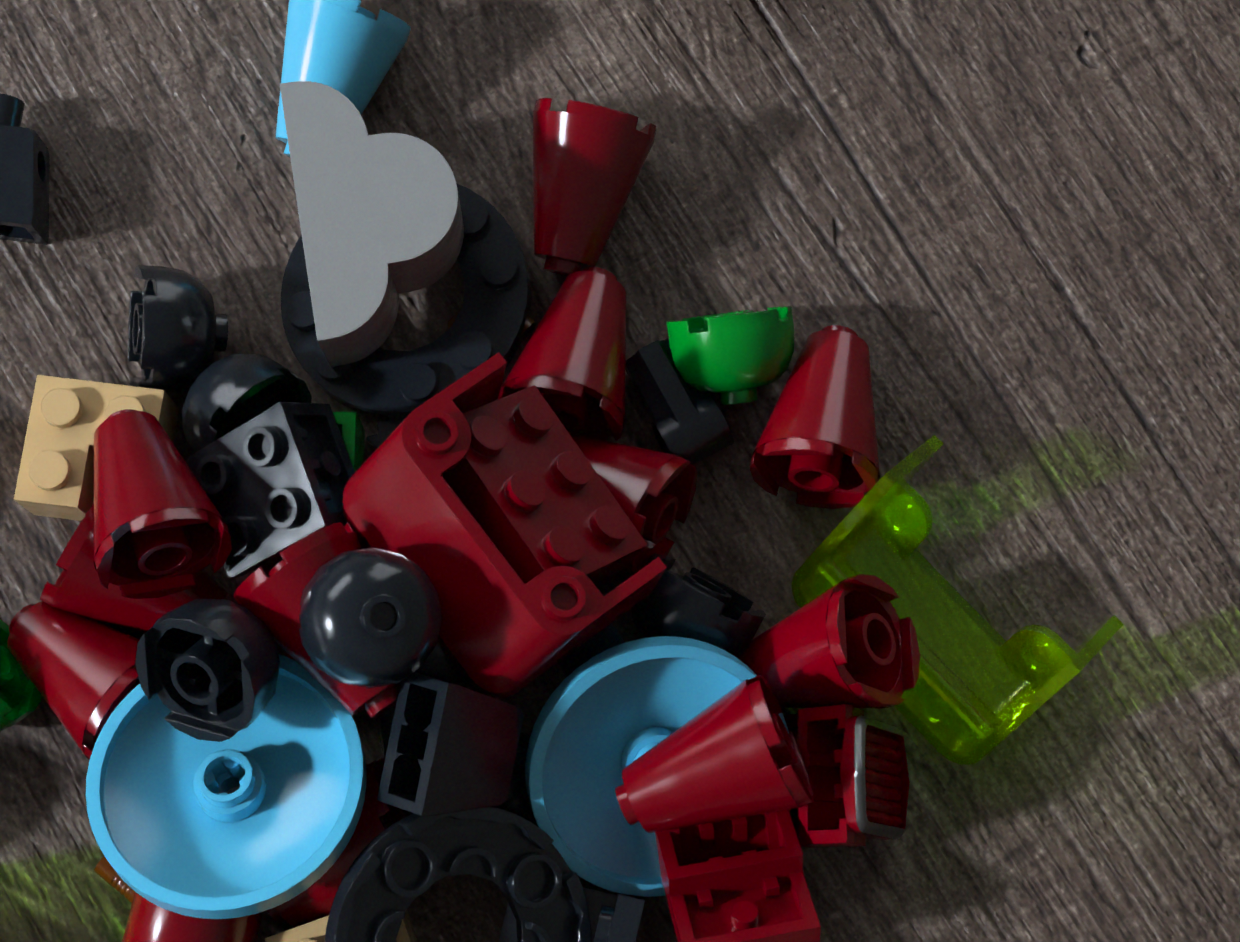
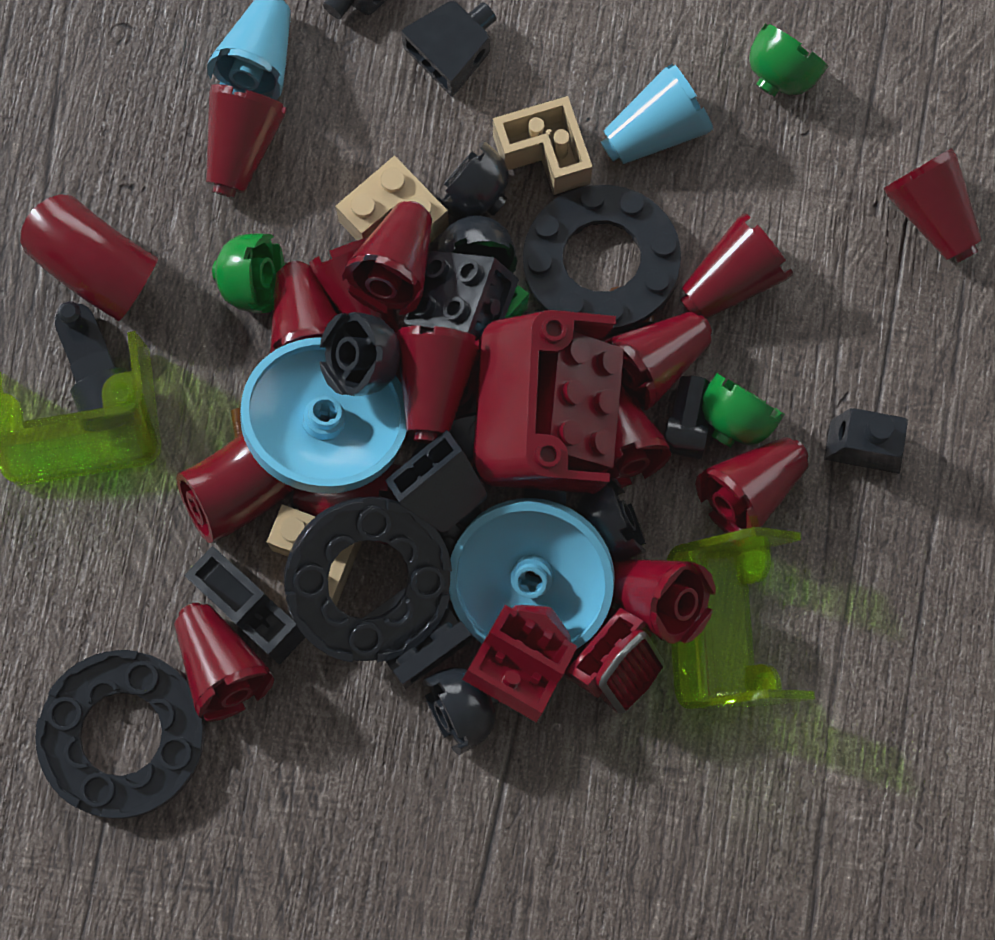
camera: 40 degrees right, 0 degrees up
(210, 195) = (545, 134): none -> tan brick
(369, 617) = (451, 390): black cylinder -> none
(372, 217) = (612, 205): light grey brick -> none
(718, 766) = (559, 599): dark red cone -> none
(916, 255) = (869, 440): none -> black torso

